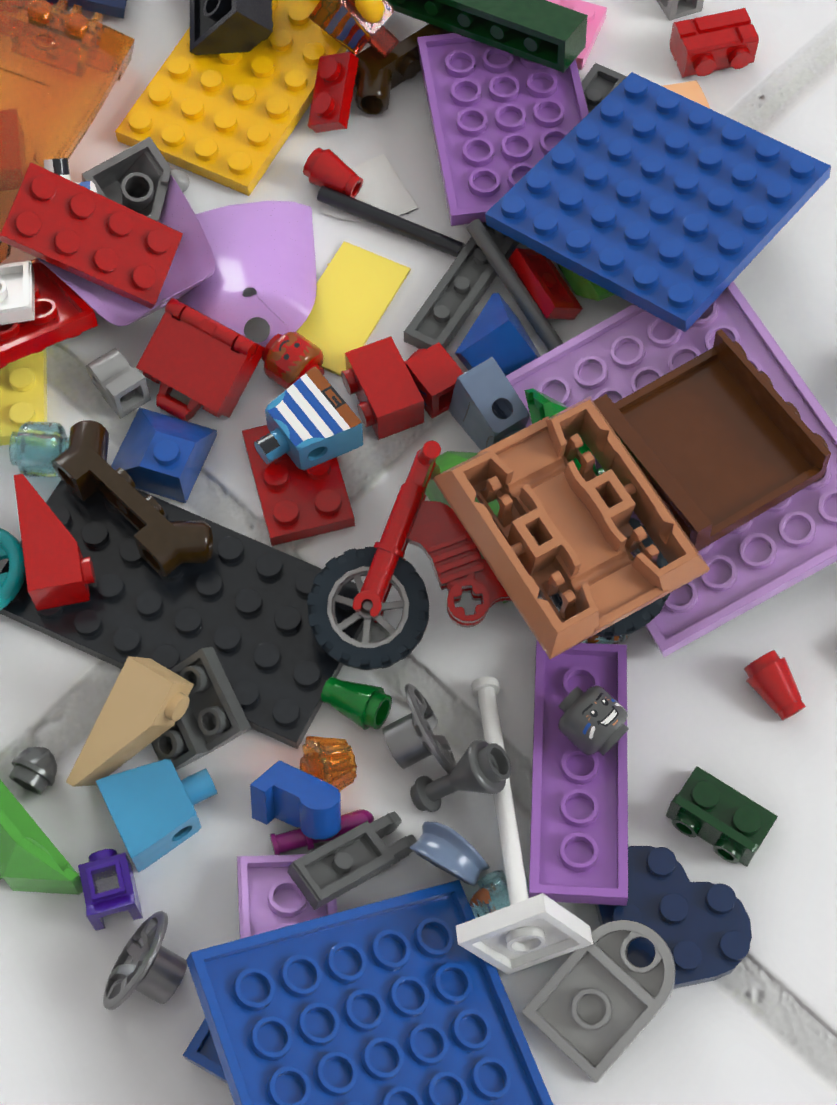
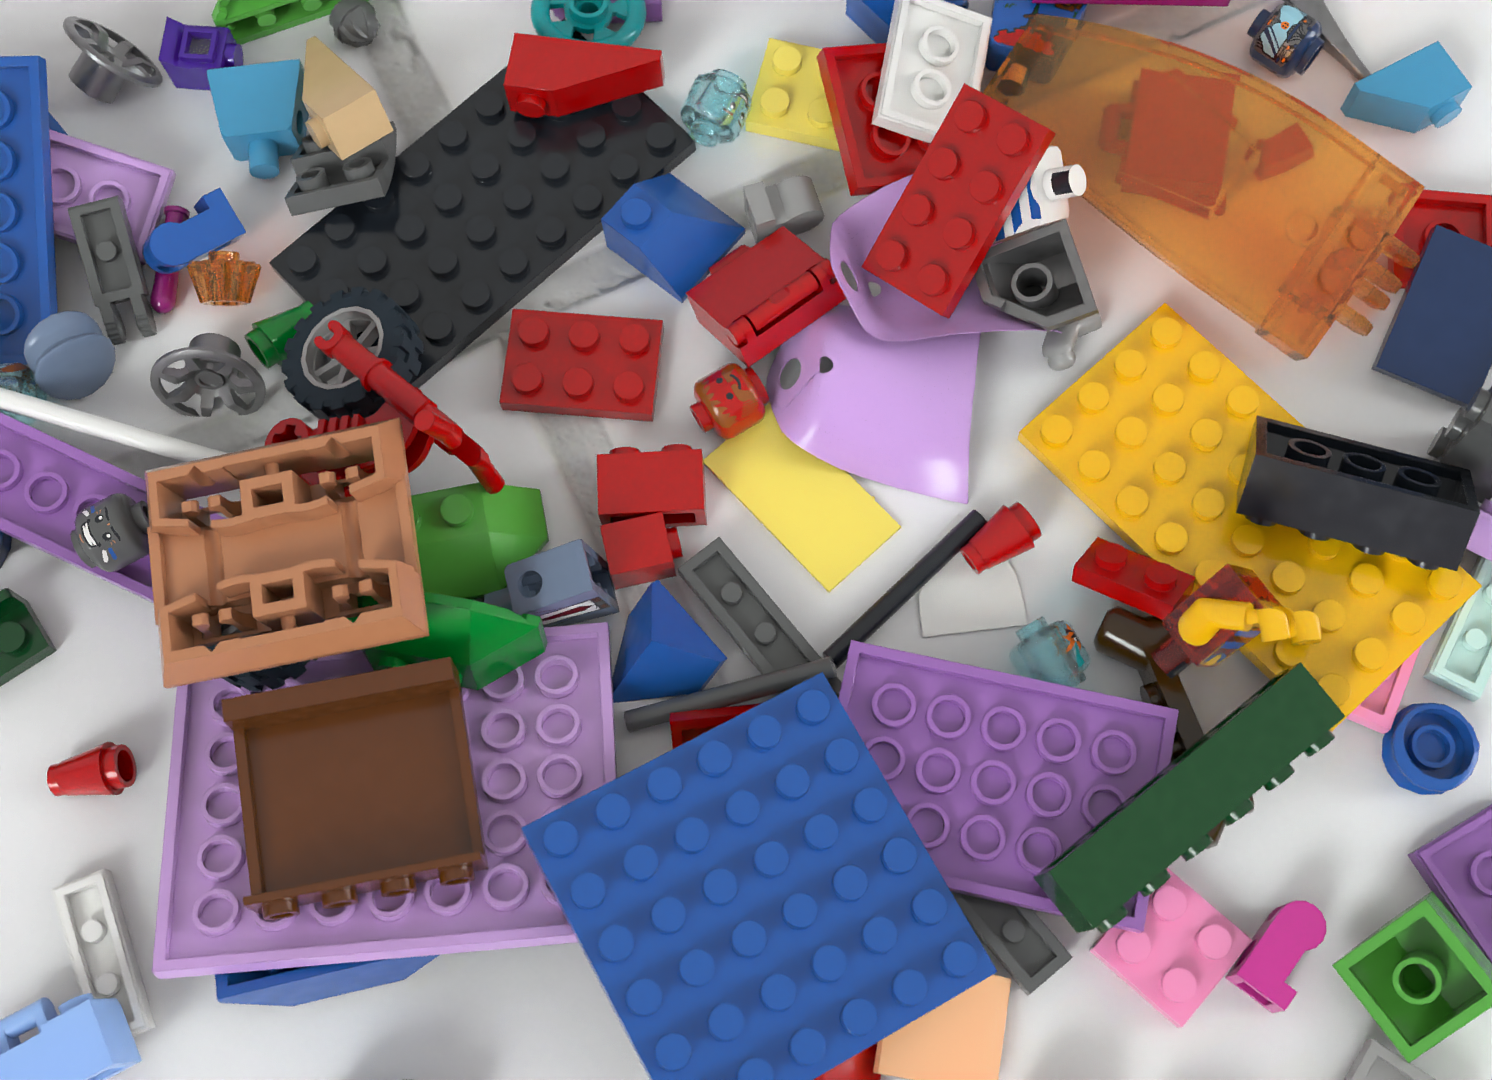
camera: 115 degrees right, 10 degrees up
(159, 541) = (533, 185): dark brown plate -> none
(309, 424) = (616, 376): torso -> none
(406, 123) = (1050, 653): none -> clear light blue head
(479, 770) = (123, 403): dark grey piece -> none

